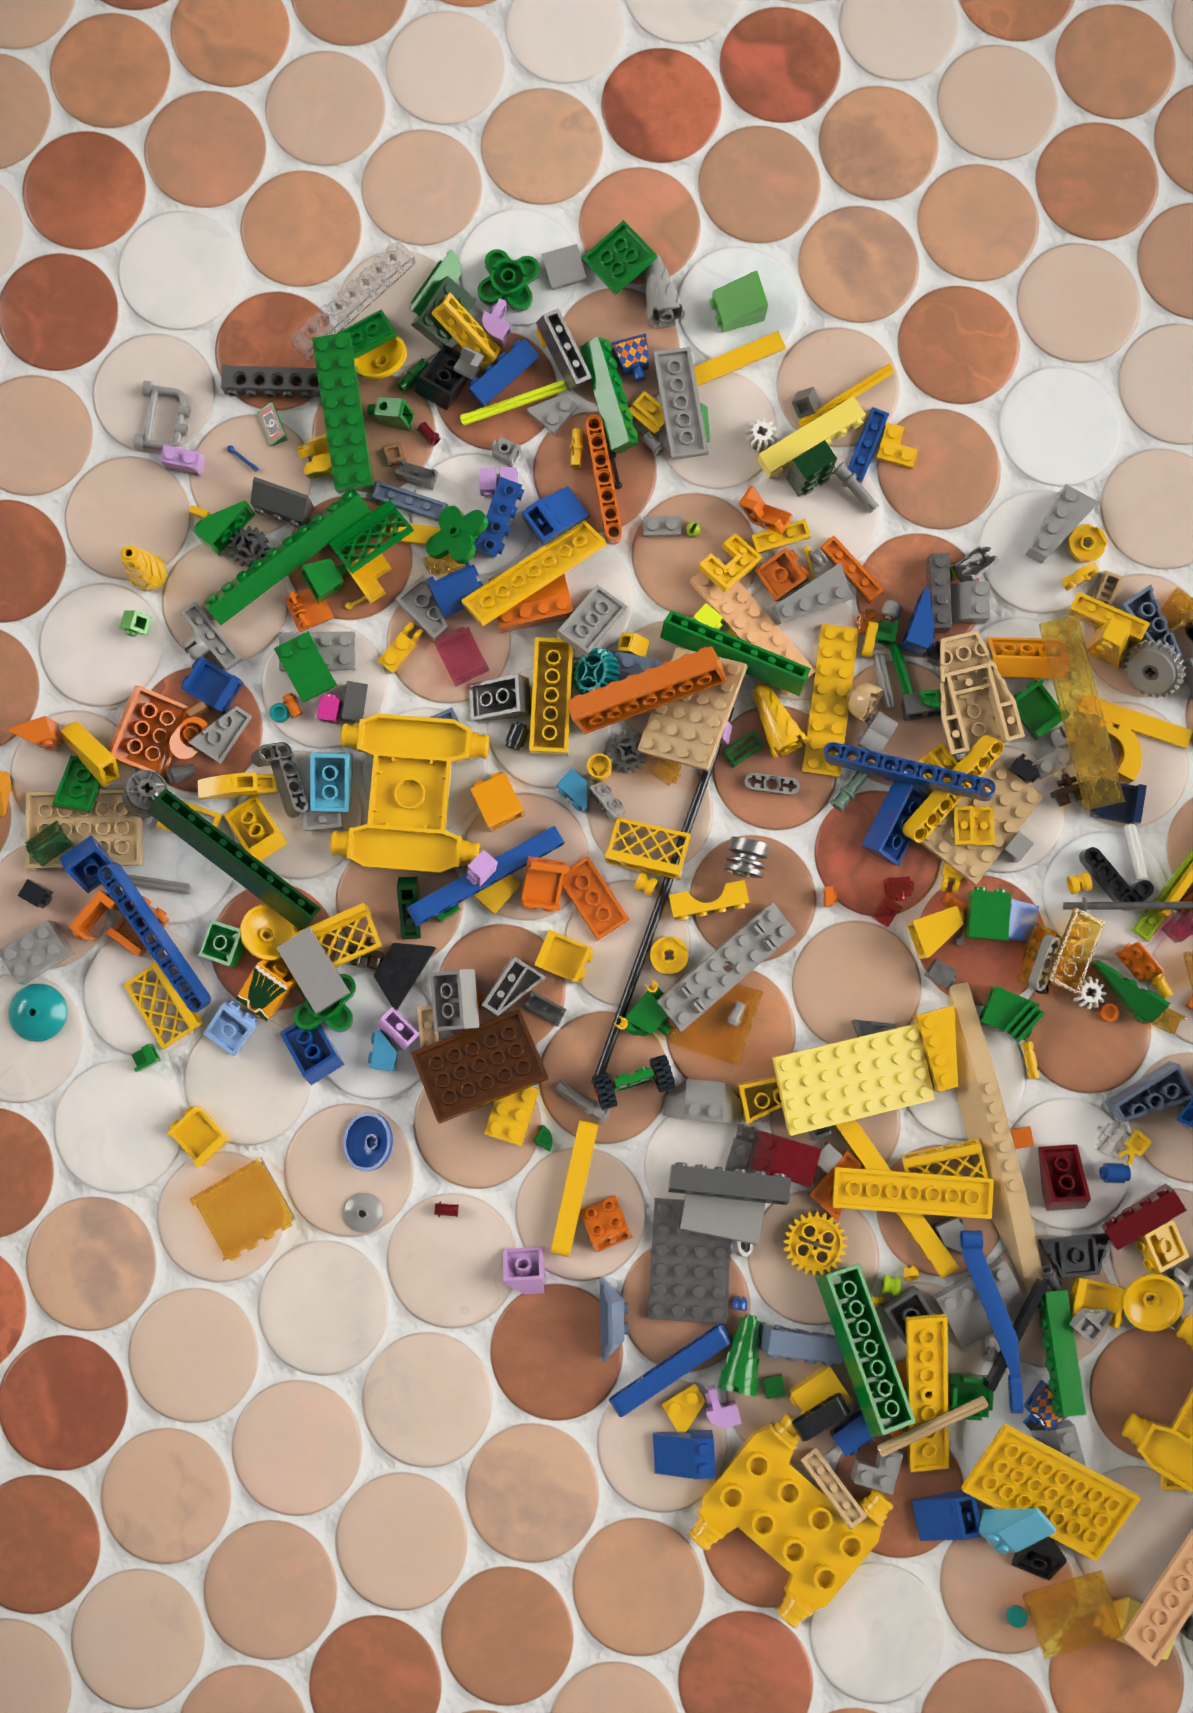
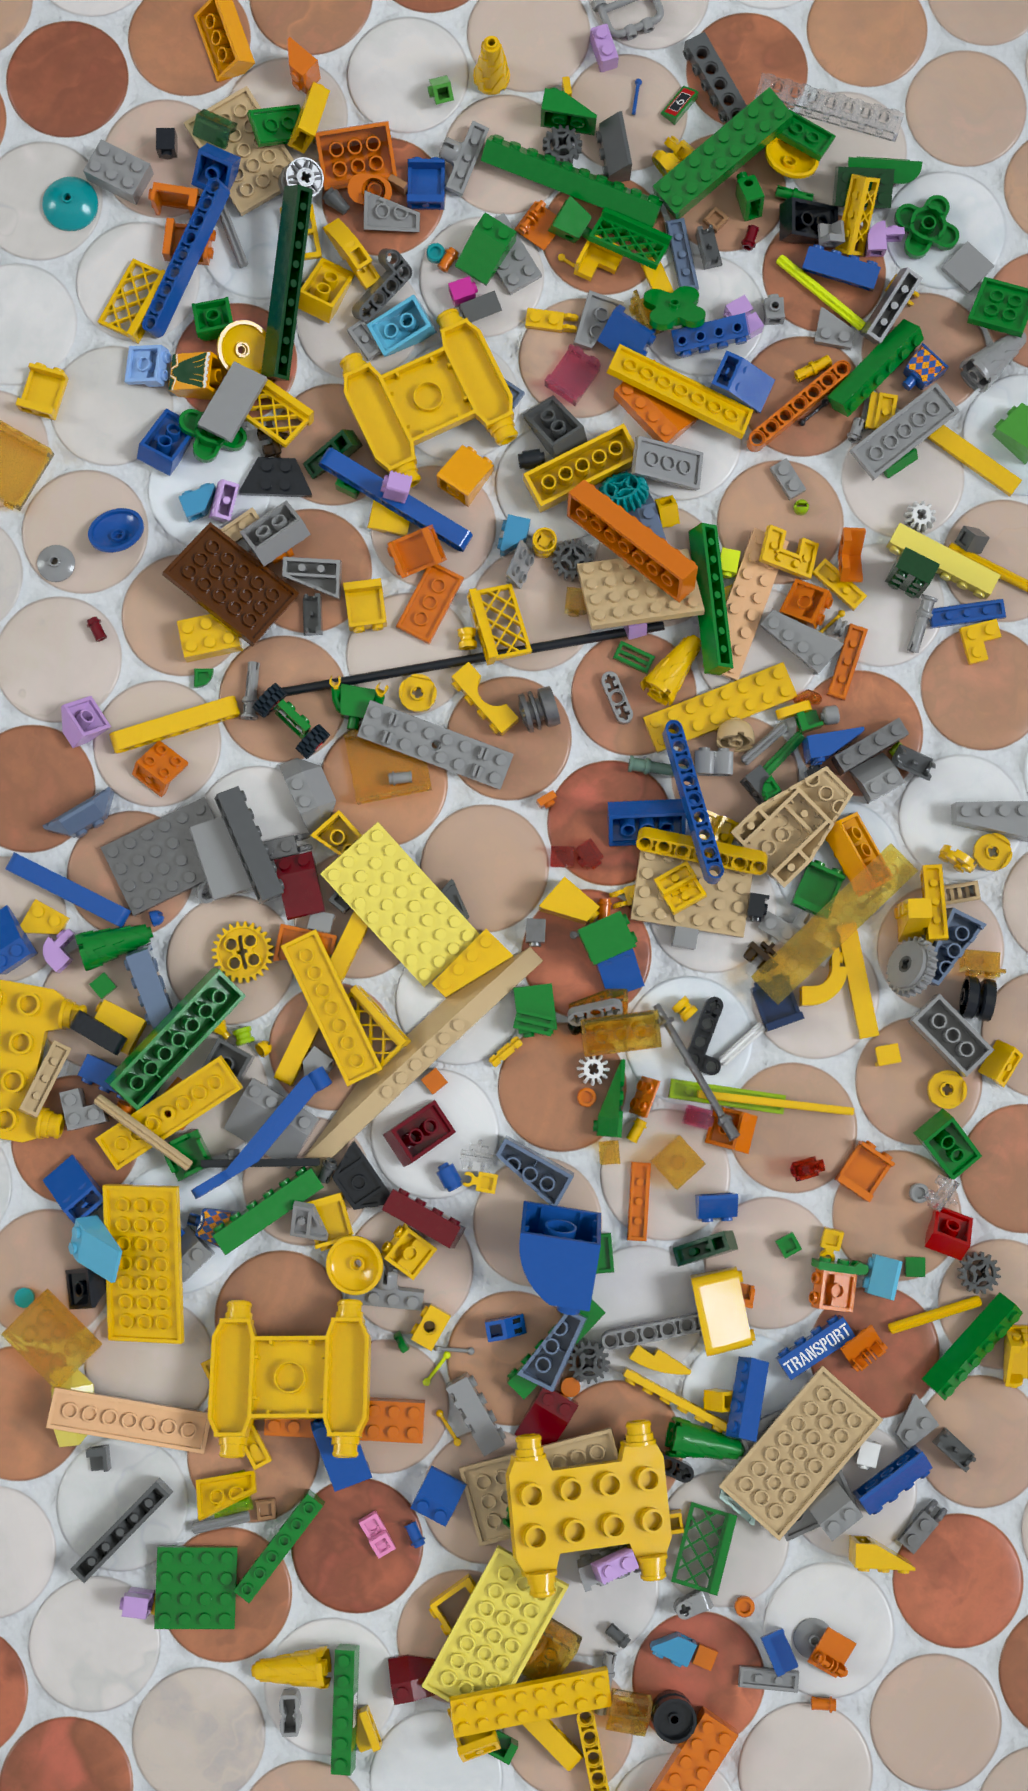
camera: 55 degrees right, 0 degrees up
(145, 1057) = (83, 312): green panel -> none

